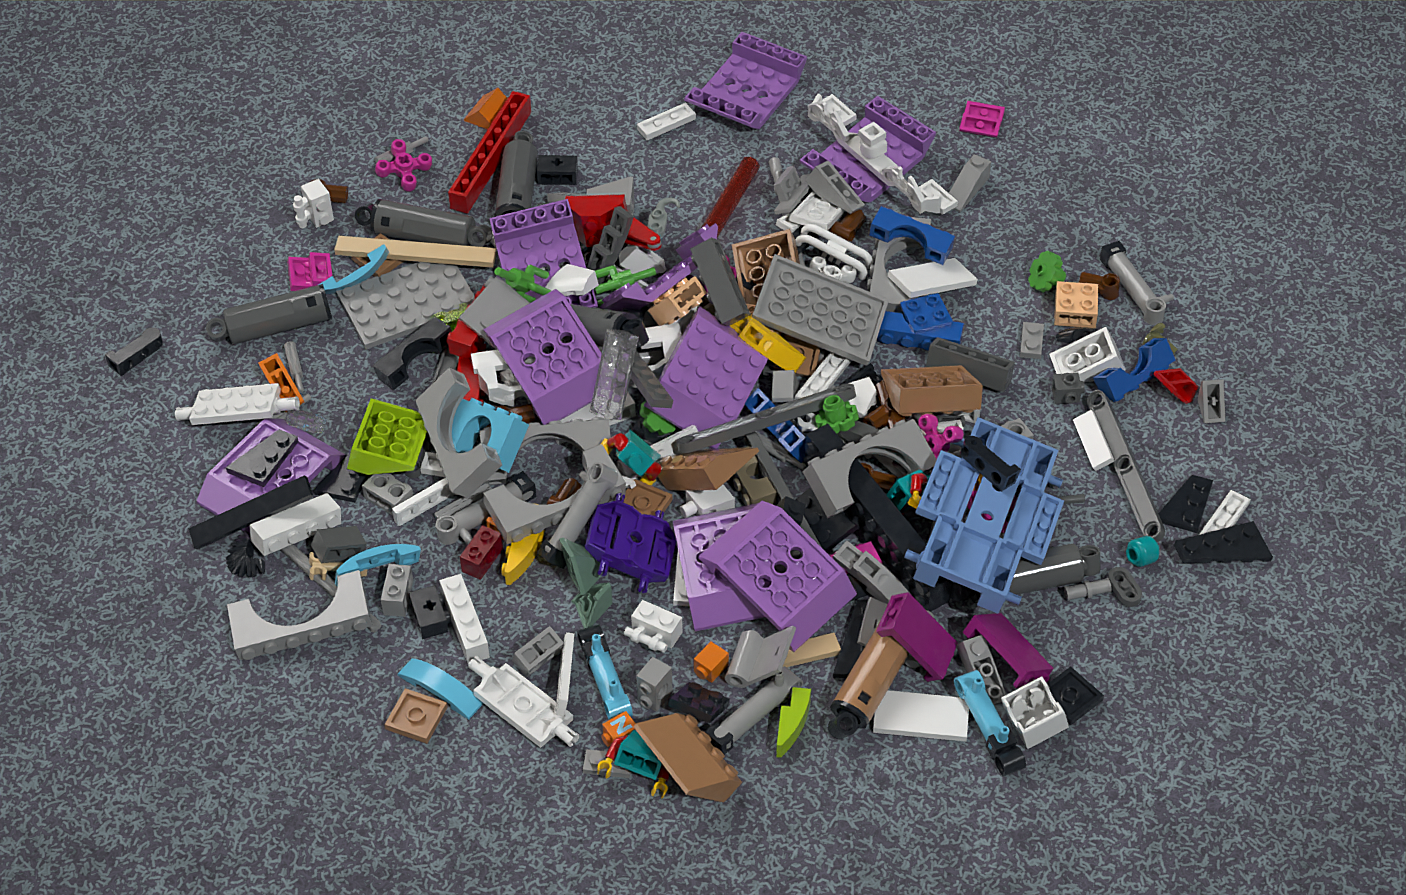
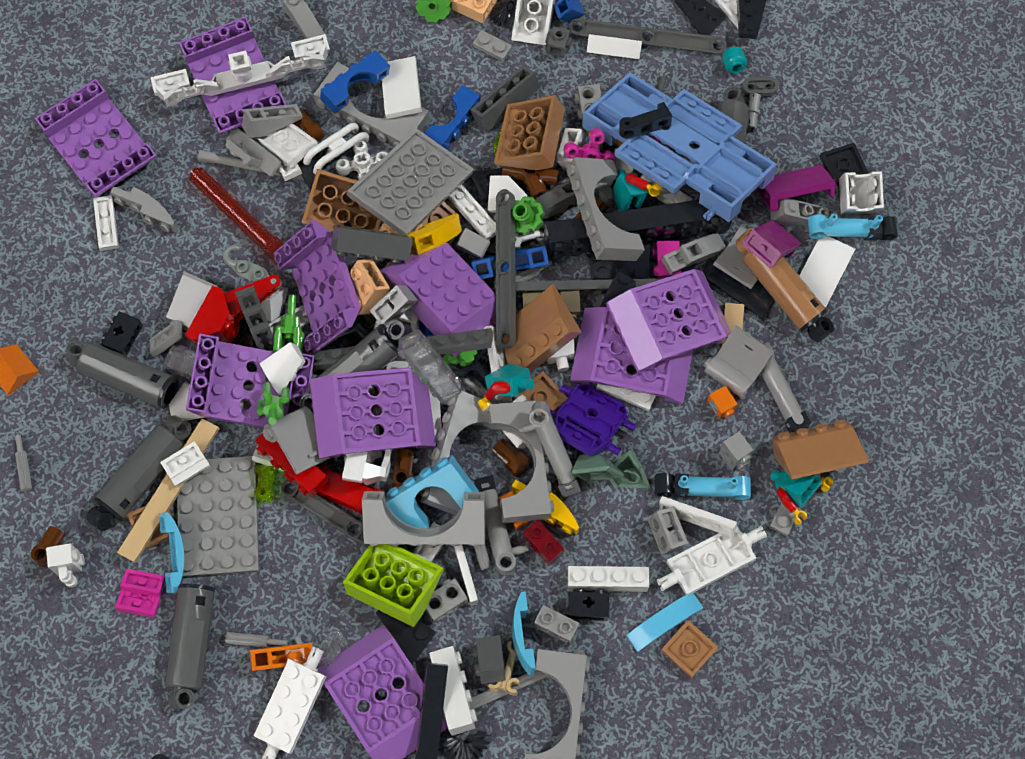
camera: 70 degrees left, 20 degrees up
(264, 459) = (376, 696): wing -> none
(403, 165) = (47, 459): dark pink gear -> none
(428, 338) = (283, 506): black arch -> none
(442, 248) = (185, 464): none -> white plate
(489, 152) = (72, 384): red brick -> none
(617, 727) = (764, 494): orange brick -> none
(654, 627) = (671, 430): white brick -> none
(664, 323) = (393, 305): none -> light grey brick
(696, 142) = (149, 208): none -> light grey slope
(699, 702) = (760, 425): black plate -> none
(793, 719) = (799, 364): lime slope -> none
(926, 313) = (440, 107): blue bracket -> none

